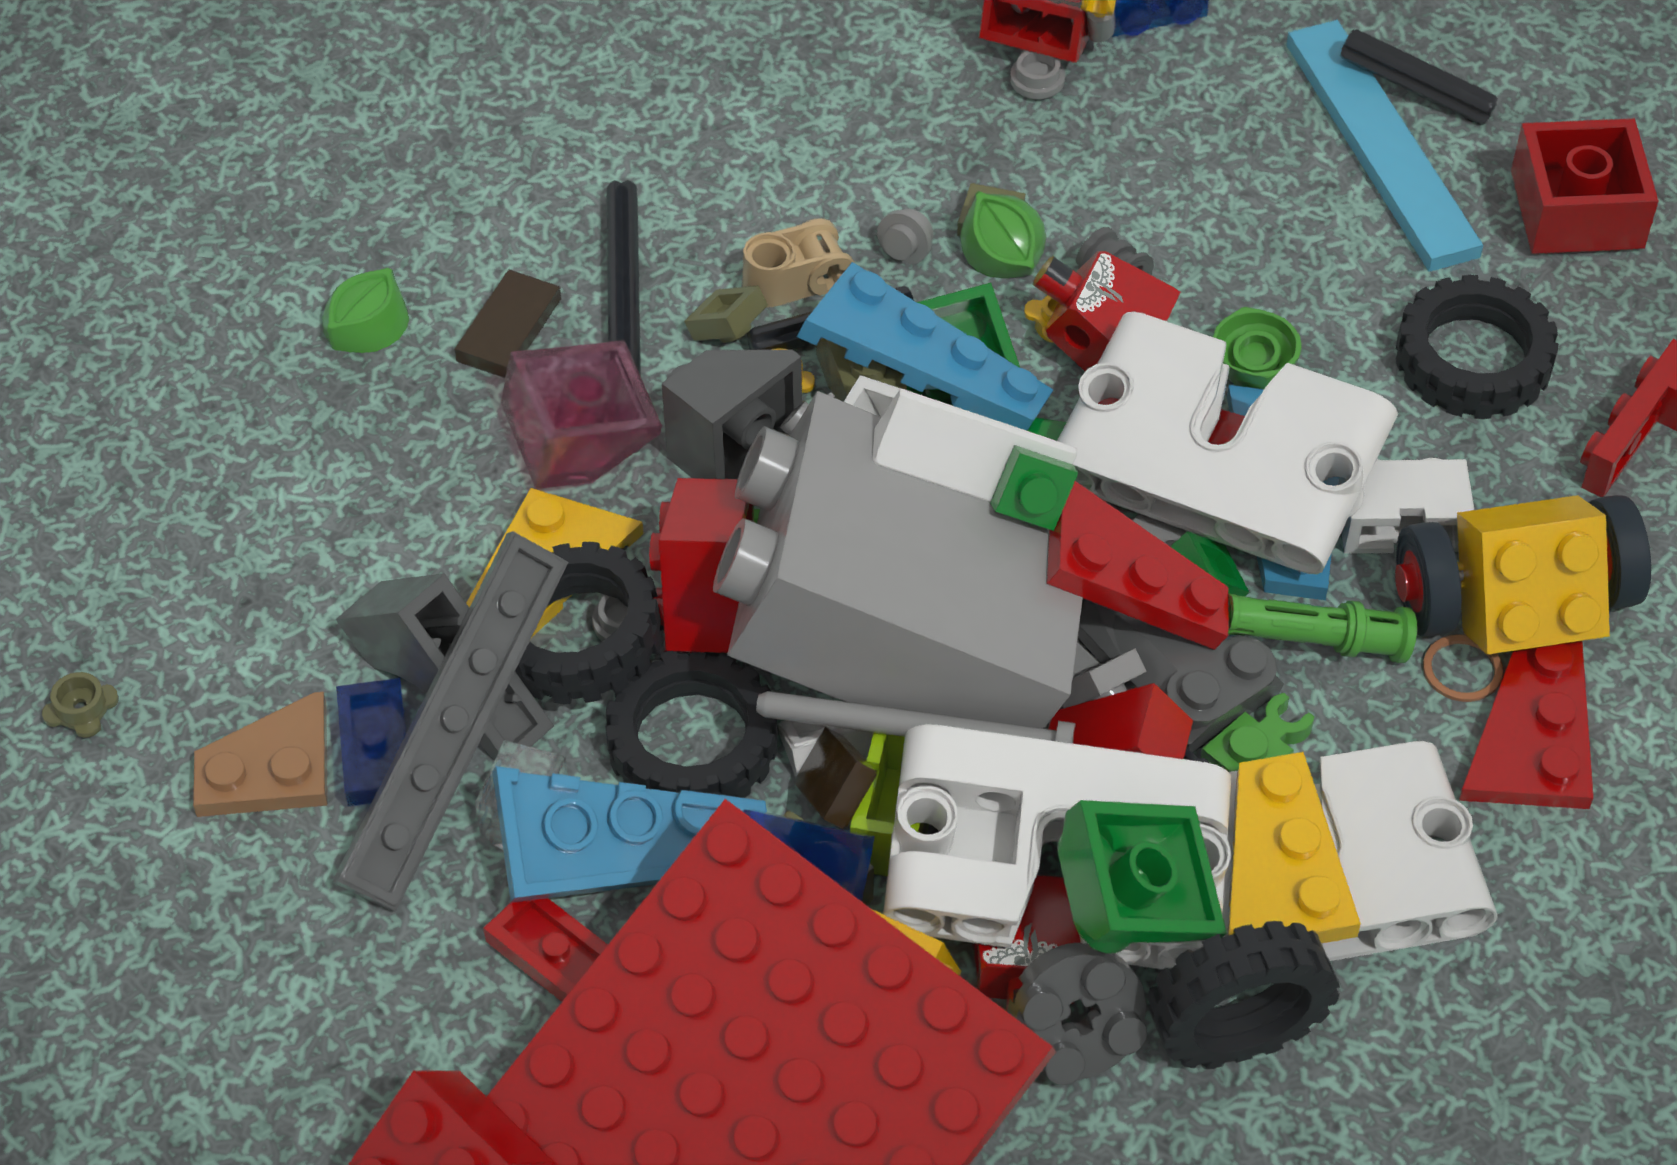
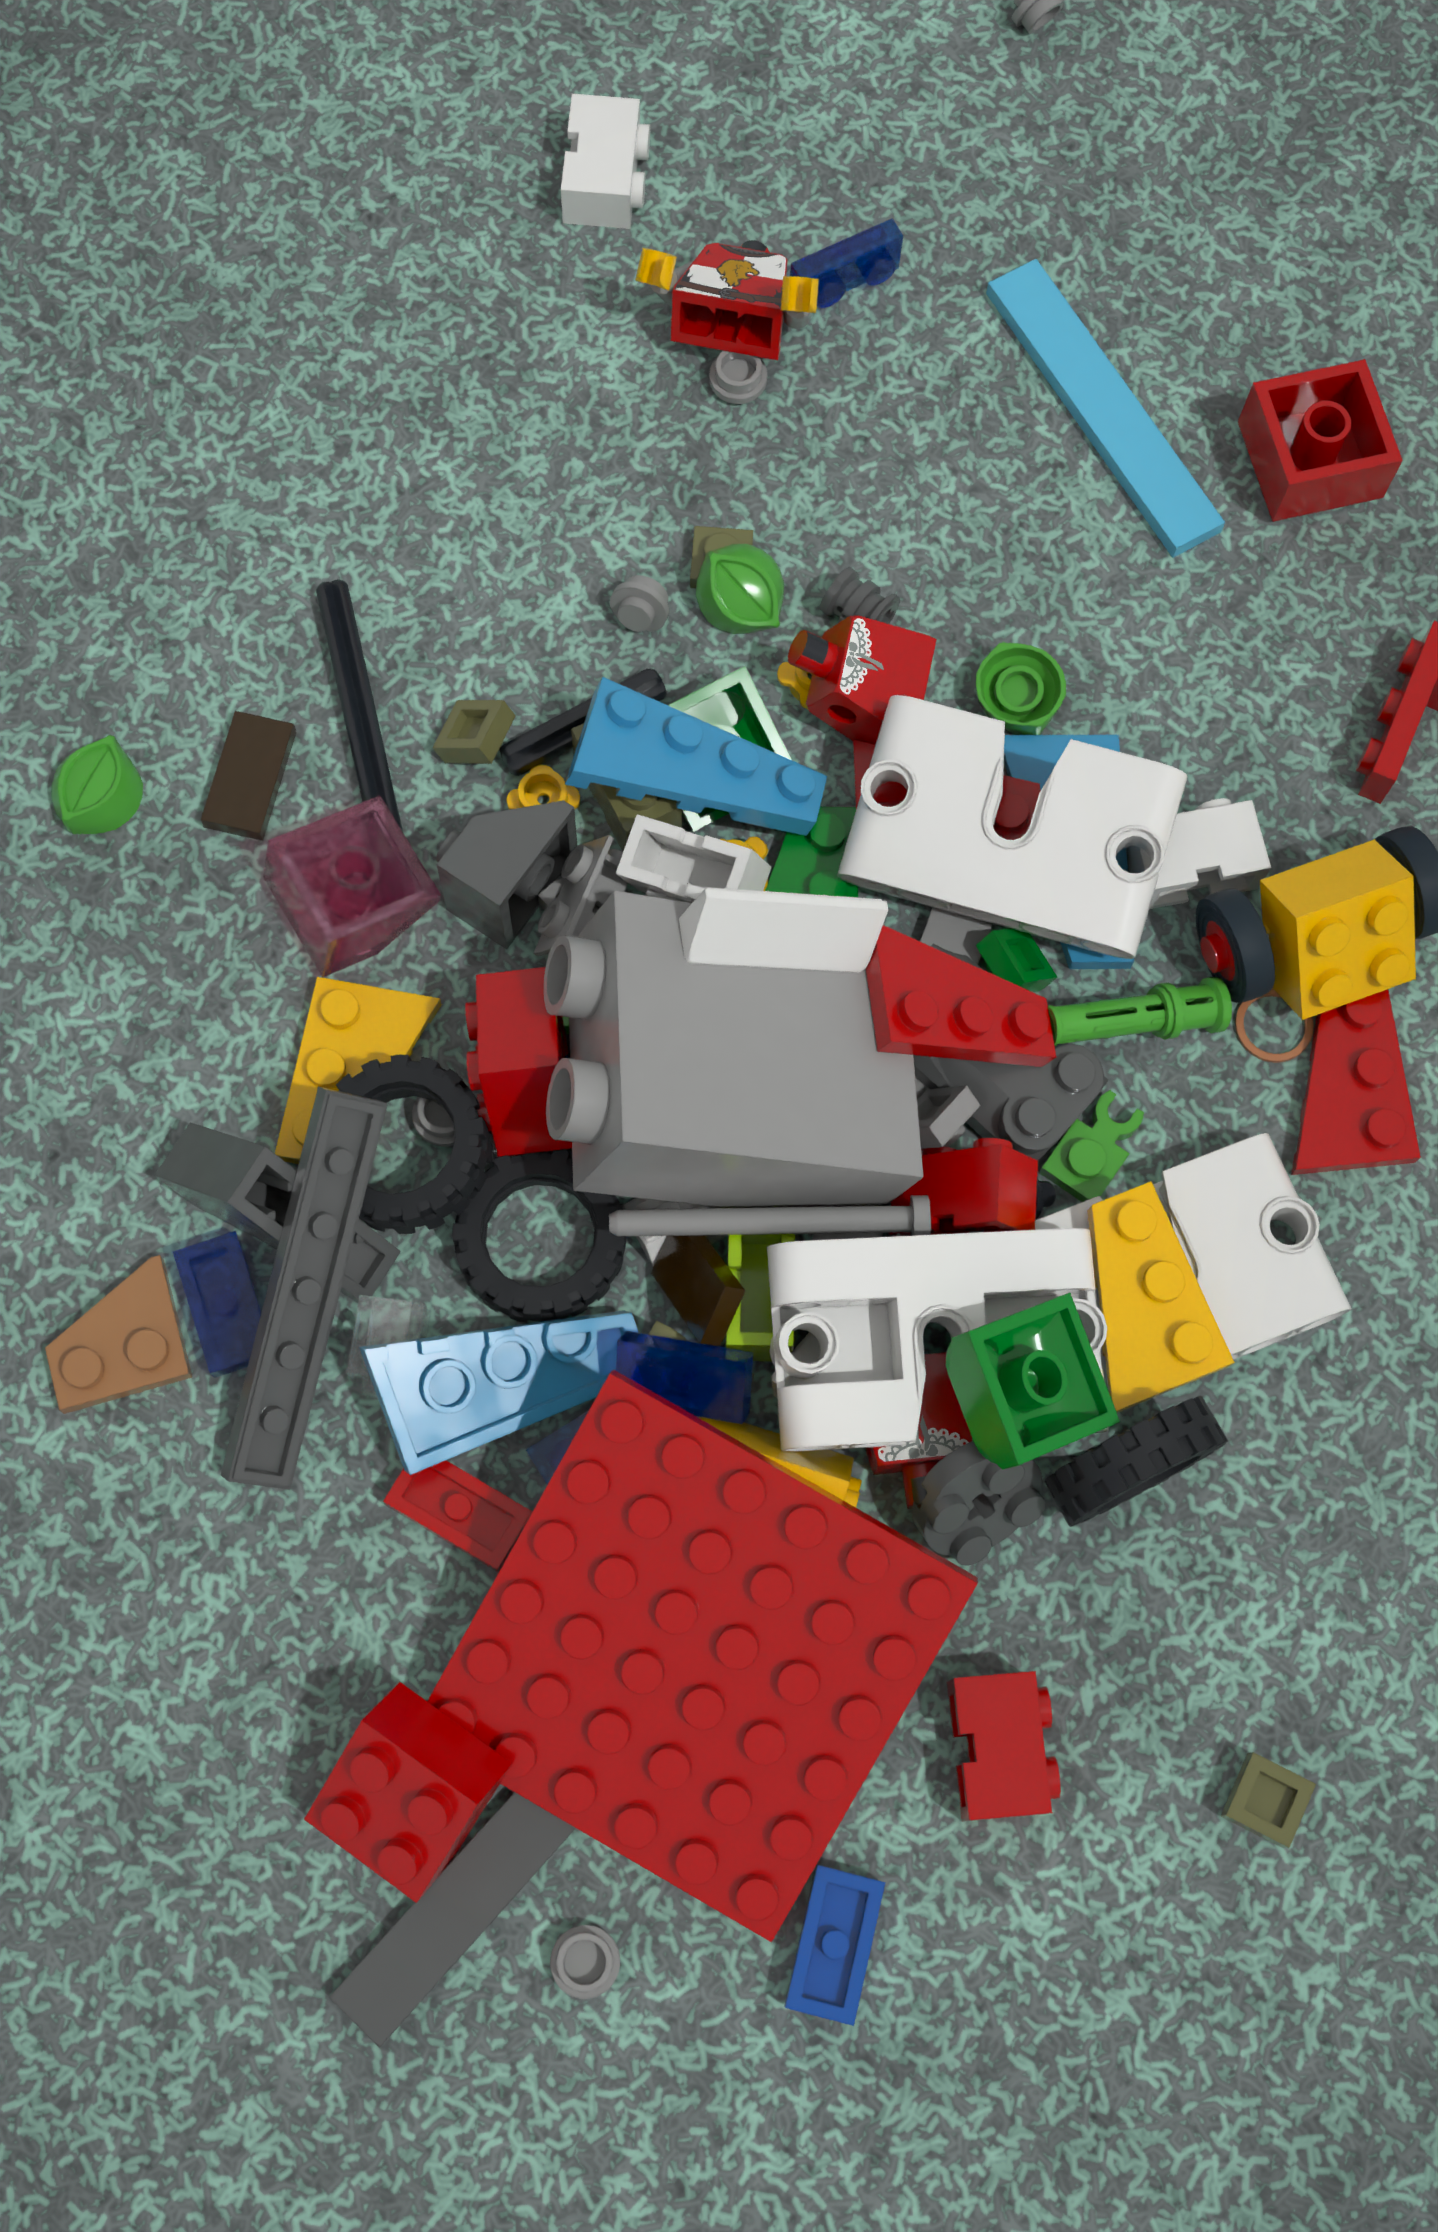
camera: 15 degrees left, 20 degrees up
(793, 262) = (542, 650): tan piece -> none
(1034, 488) = (850, 952): green plate -> none
(1418, 76) = (1130, 322): black axle -> none
(1465, 390) = (1247, 594): black tyre -> none

